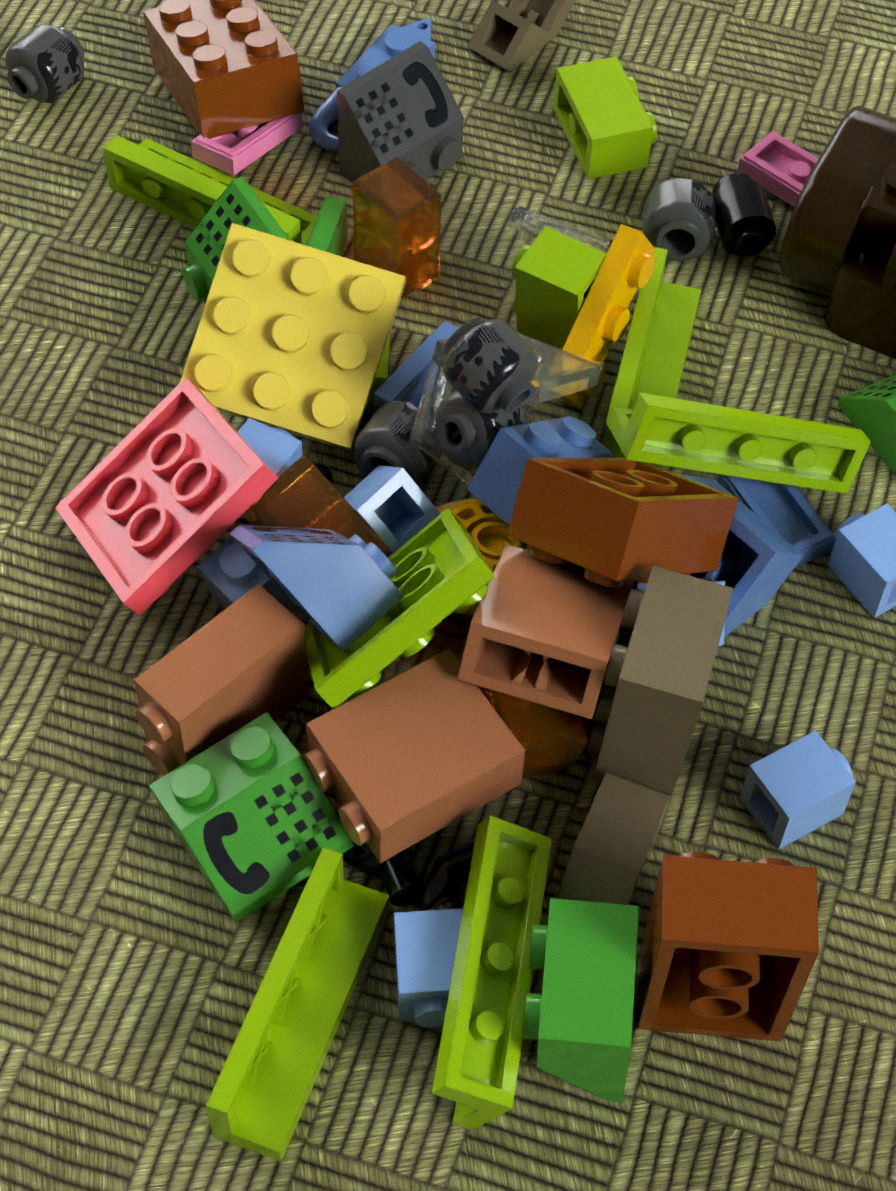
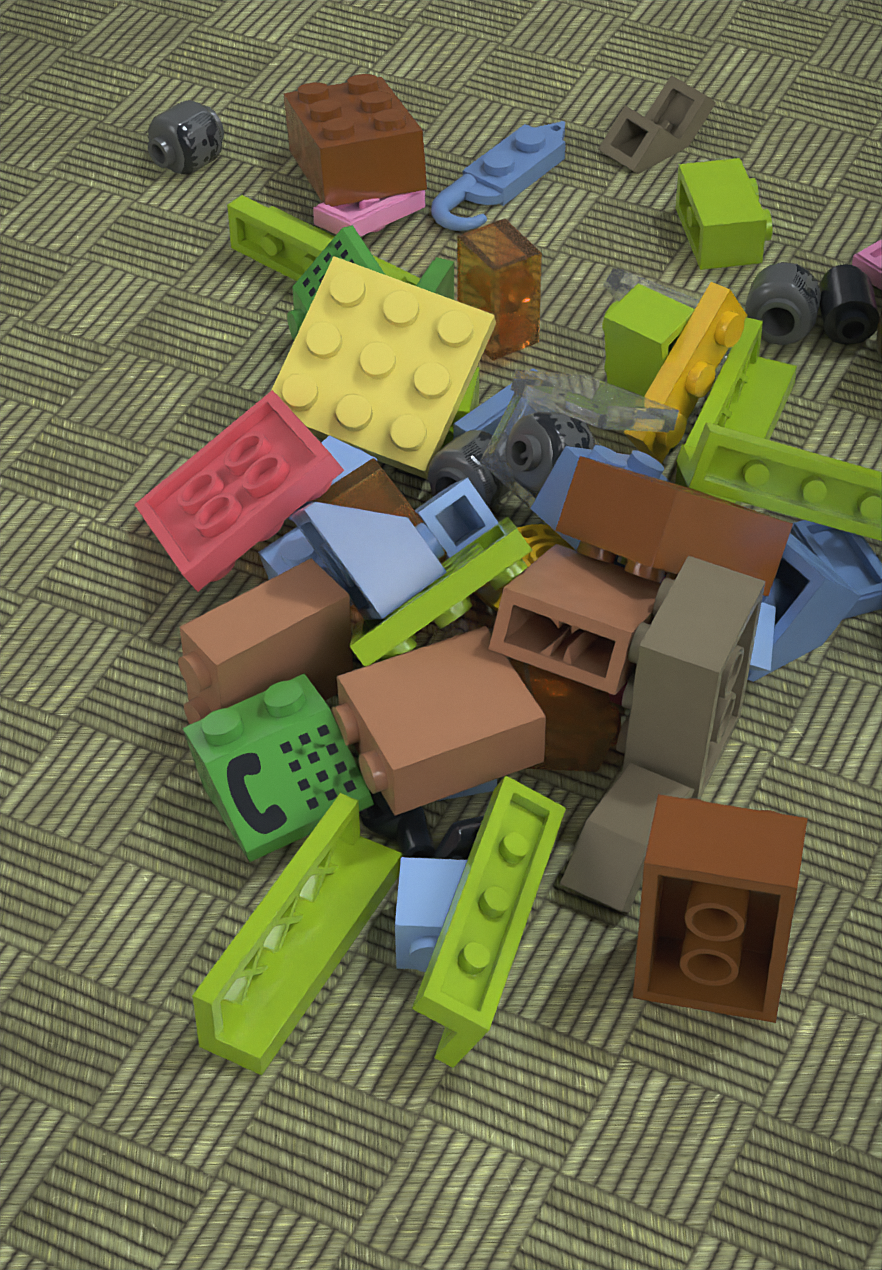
camera: 10 degrees right, 10 degrees down
(399, 113) = (523, 184): dark grey slope -> none
(490, 366) = (559, 385): dark grey head -> none
(586, 994) = (576, 941): bright green slope -> none
(798, 789) = (829, 790): light blue brick -> none

